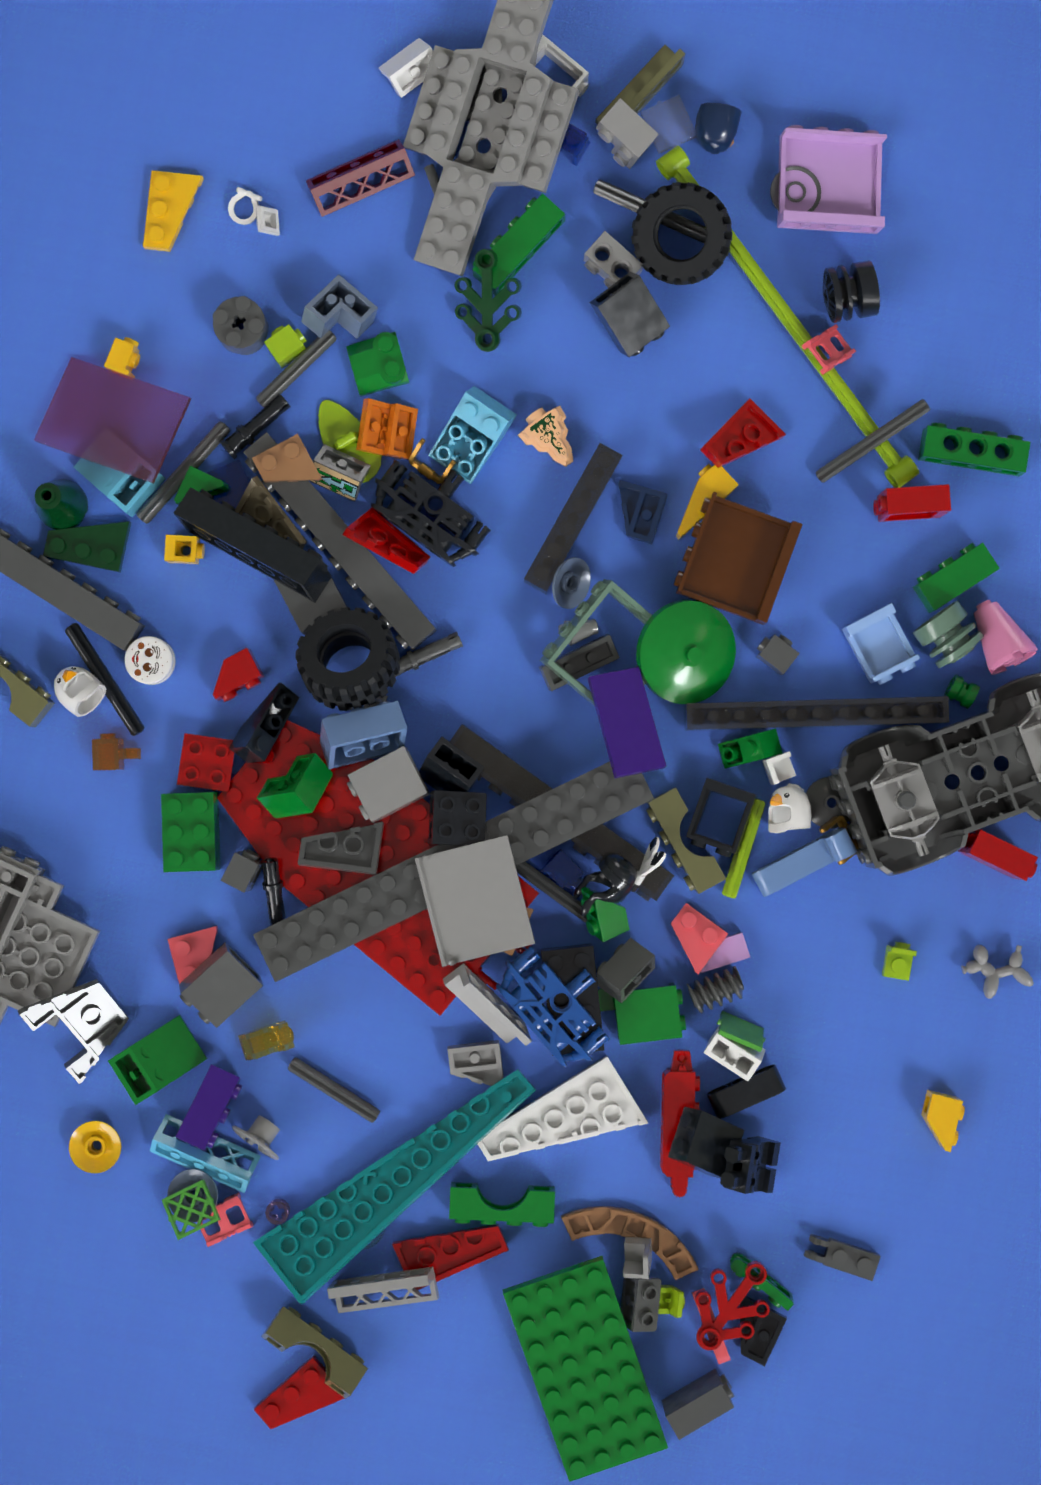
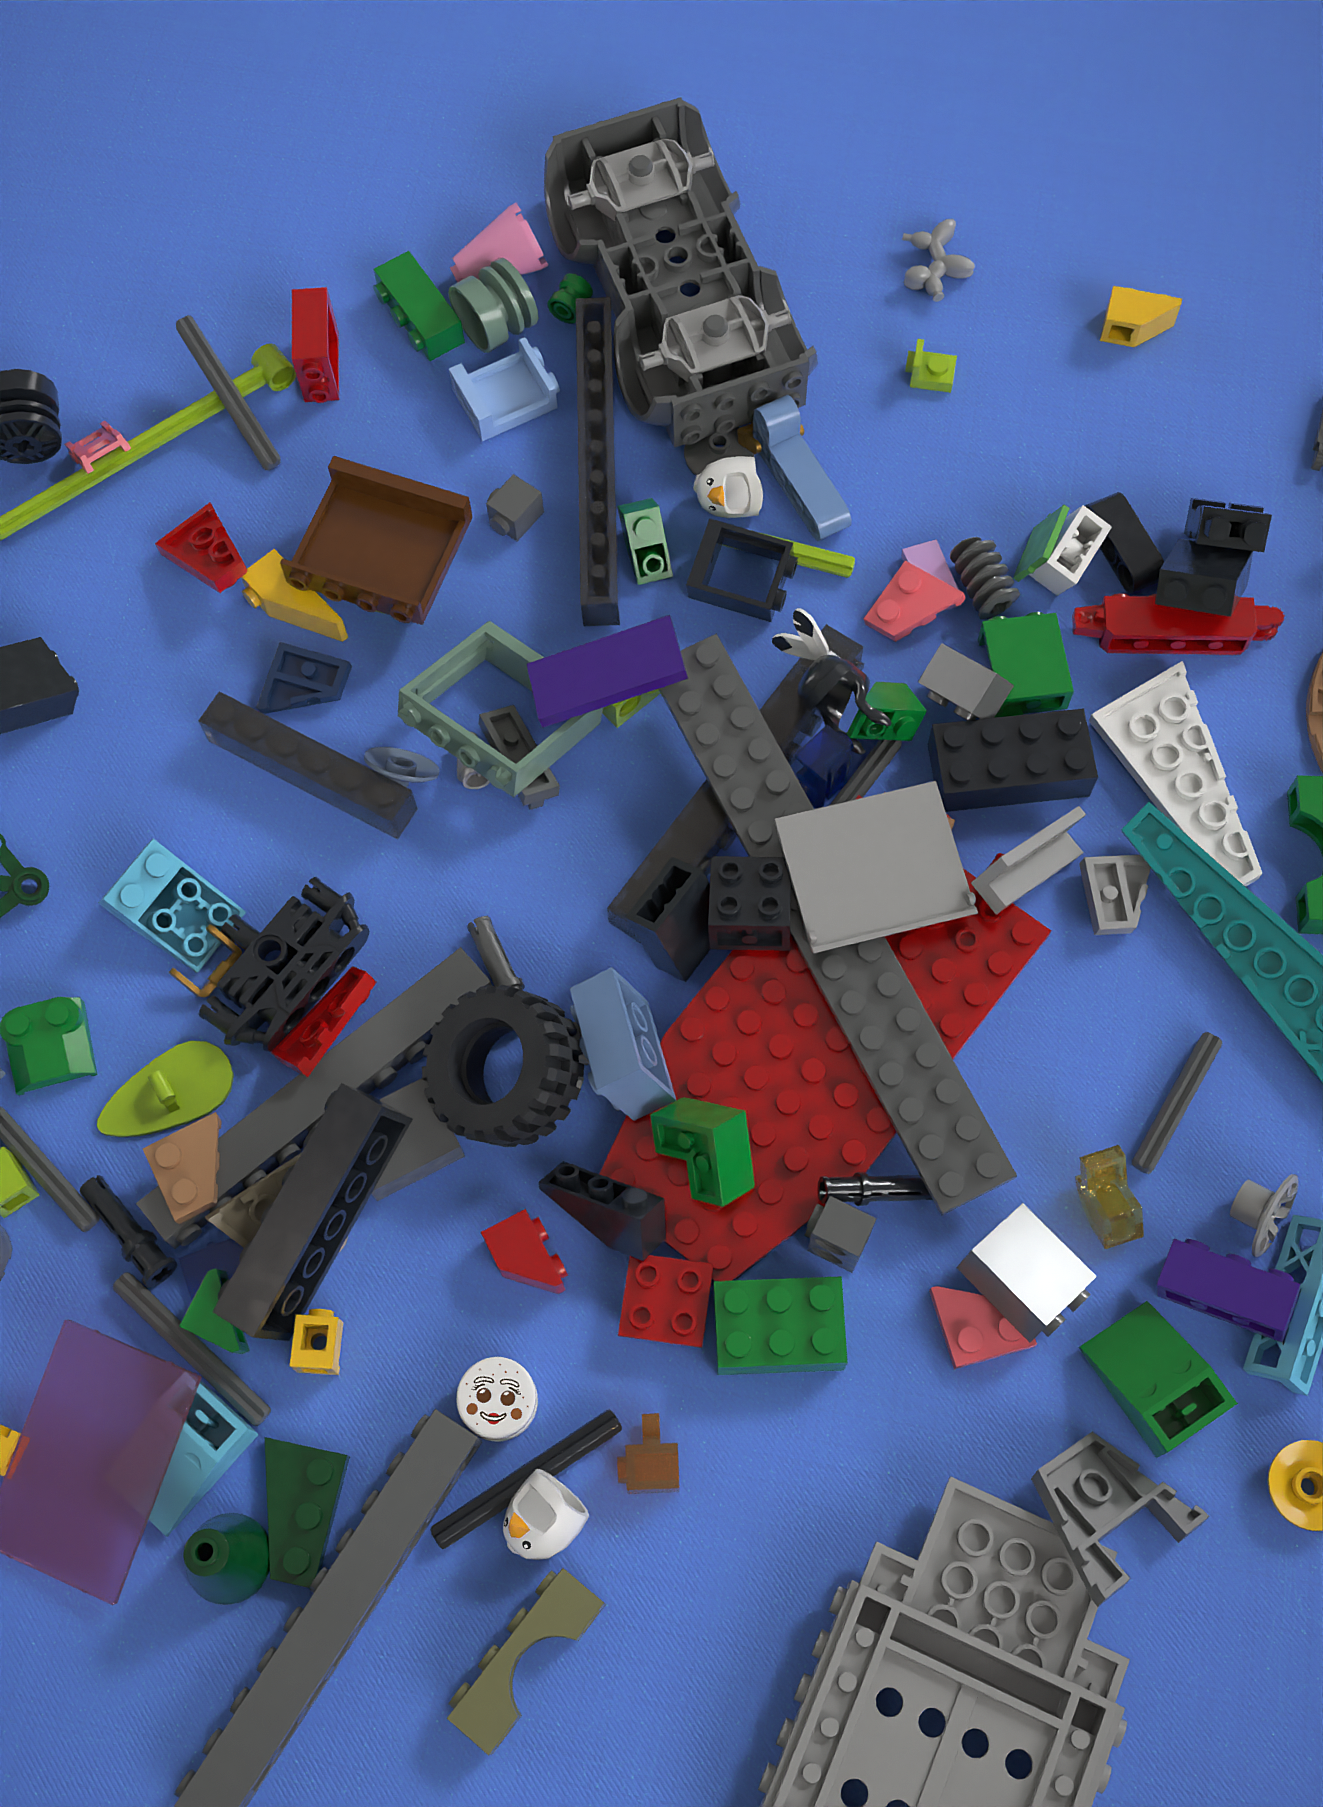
camera: 90 degrees left, 20 degrees down
(340, 472) = (217, 1087): panel -> none
(345, 850) = (803, 1072): dark grey wing -> none
(387, 429) = (151, 1029): orange slope -> none
(387, 785) = (700, 1005): light grey brick -> none
(539, 1017) = (1007, 783): blue piece -> none
(548, 434) = (182, 800): light nougat rock -> none
(669, 811) = (745, 638): olive arch -> none
(686, 651) = (506, 612): green dish -> none
(779, 768) = (675, 506): white panel -> none
(999, 855) = (789, 240): red brick -> none
(1012, 464) = (251, 287): green brick -> none

